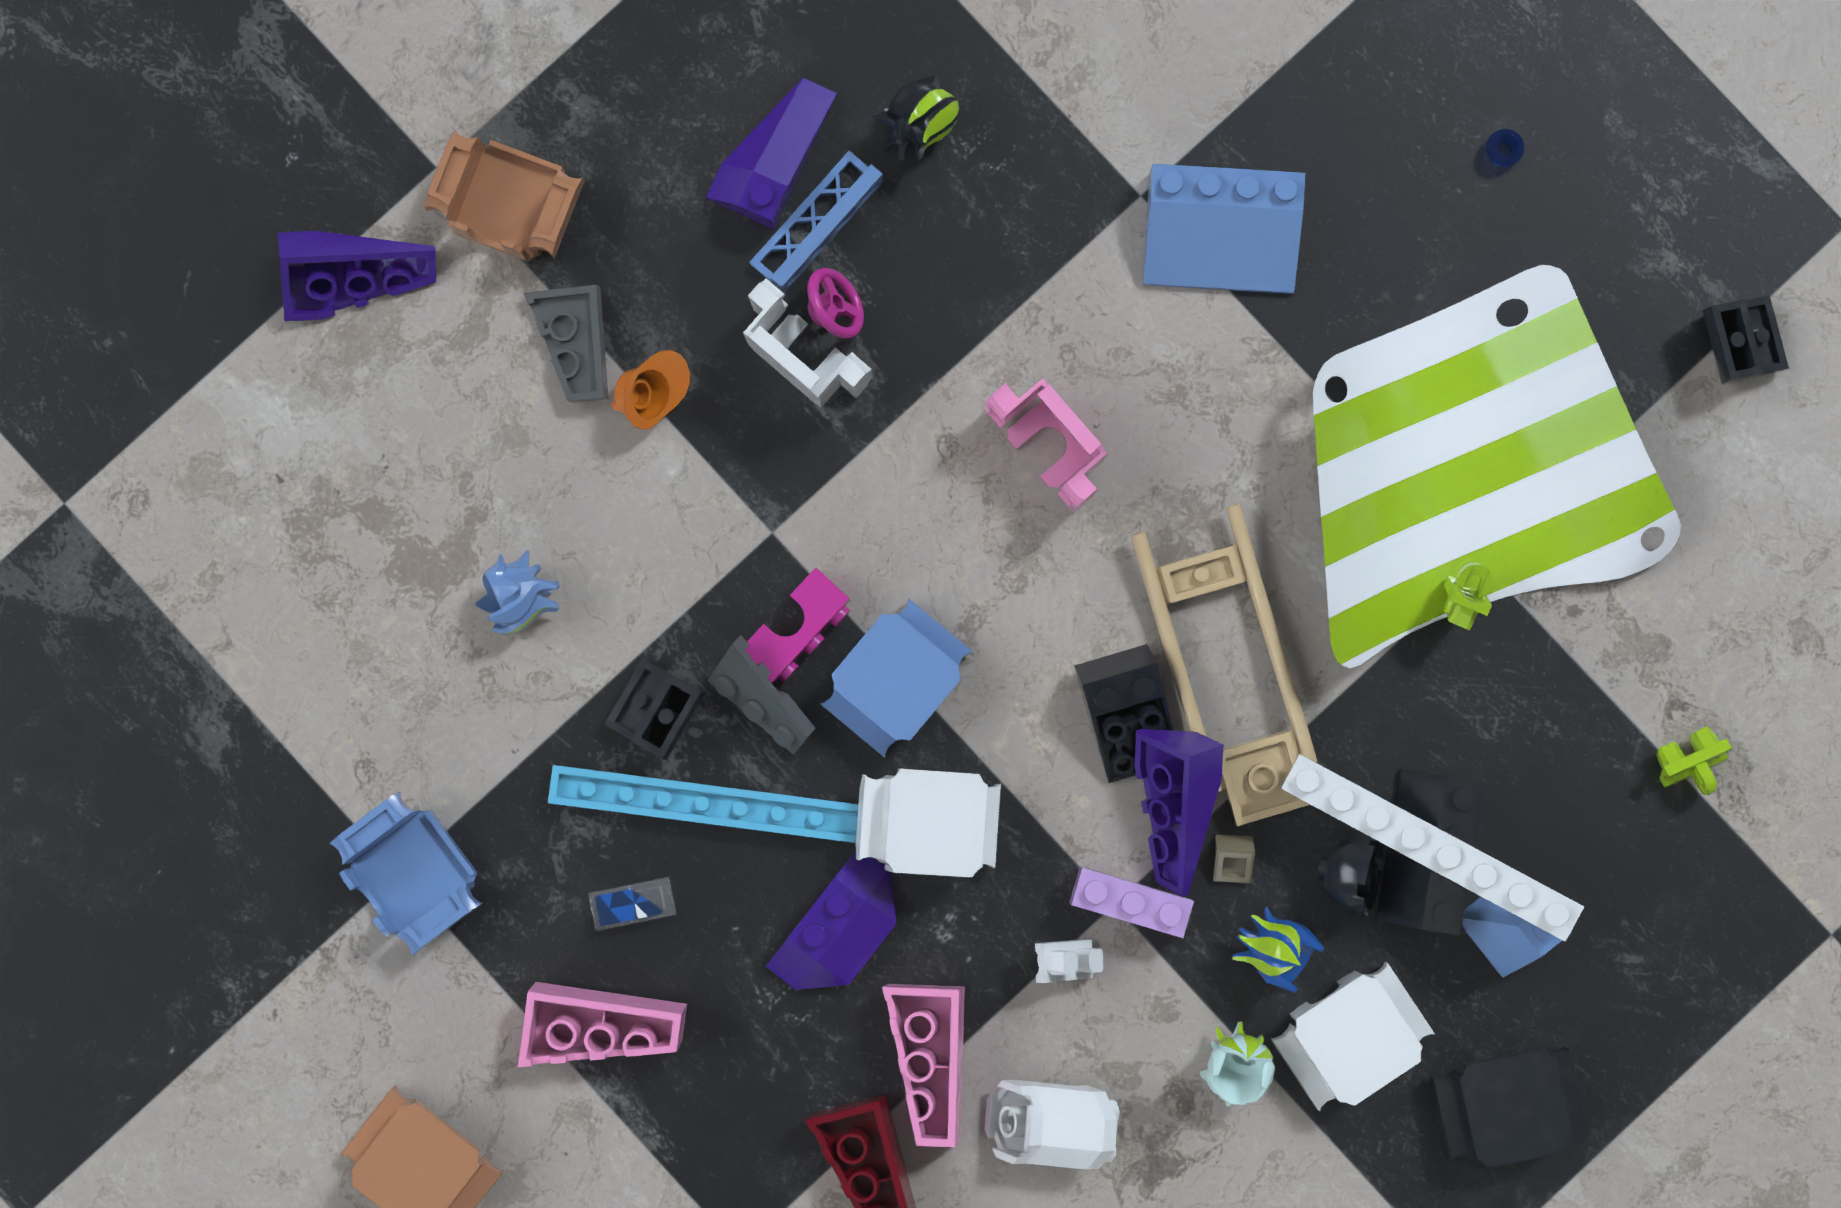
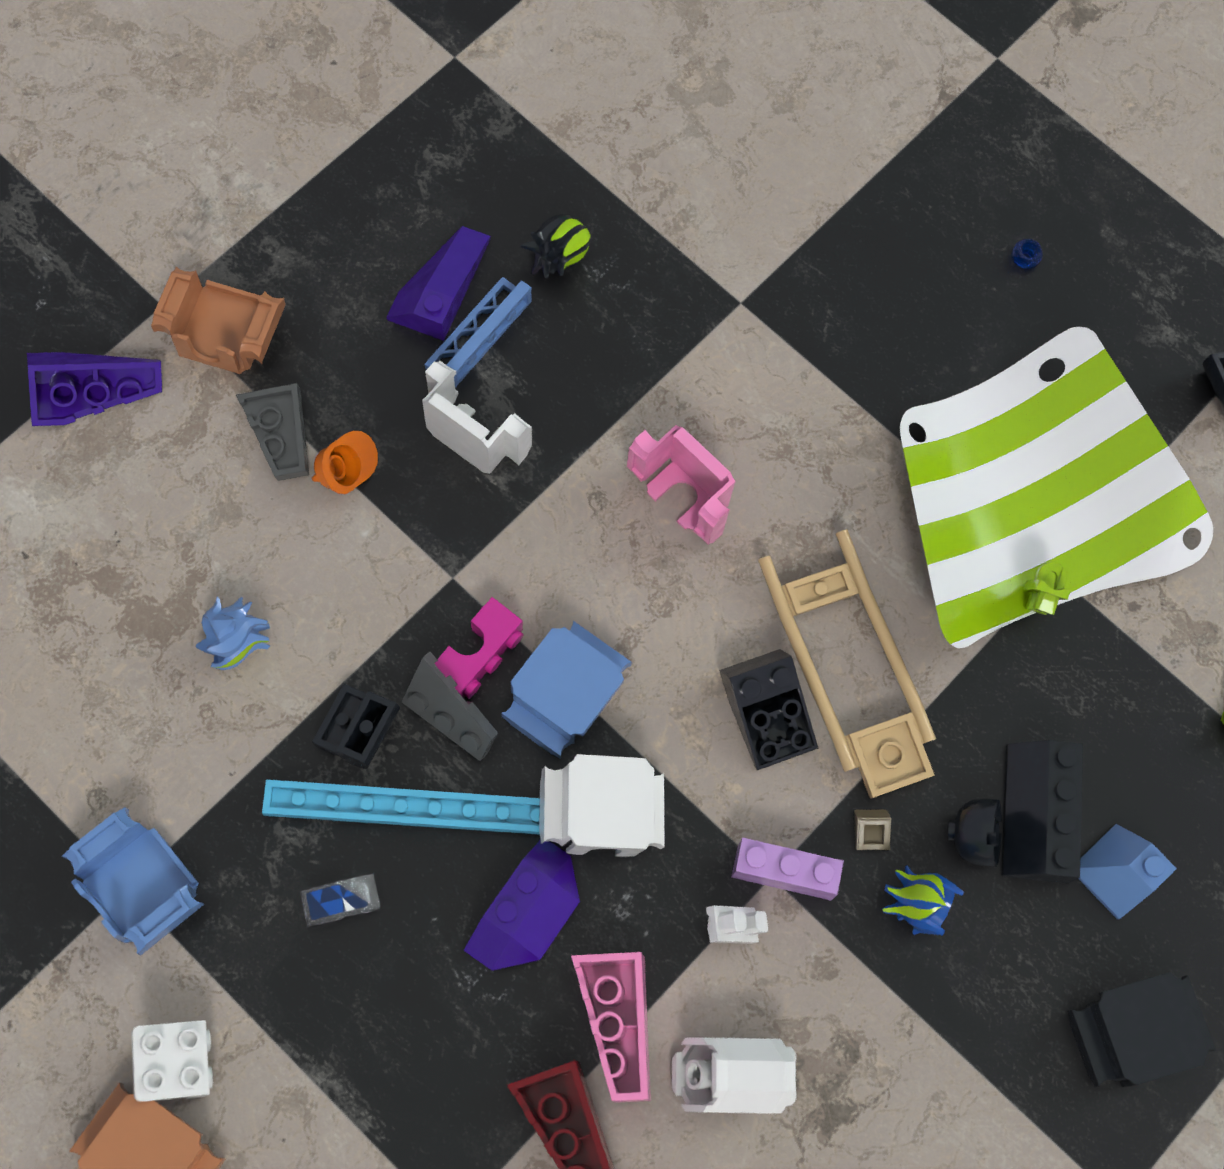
camera: 15 degrees left, 15 degrees down
(448, 1072) = (171, 1061): none -> white bracket
(594, 1024) = (298, 1011): bright pink wedge -> none
(830, 305) = (492, 393): dark pink piece -> none
(1181, 788) = (821, 766): dark purple wedge -> none
(1223, 228) = (810, 319): medium blue slope -> none
(1239, 1067) = (899, 1009): light aqua hair -> none
(1354, 1038) = (996, 979): white piece -> none
(1433, 848) = (1050, 796): white brick -> none

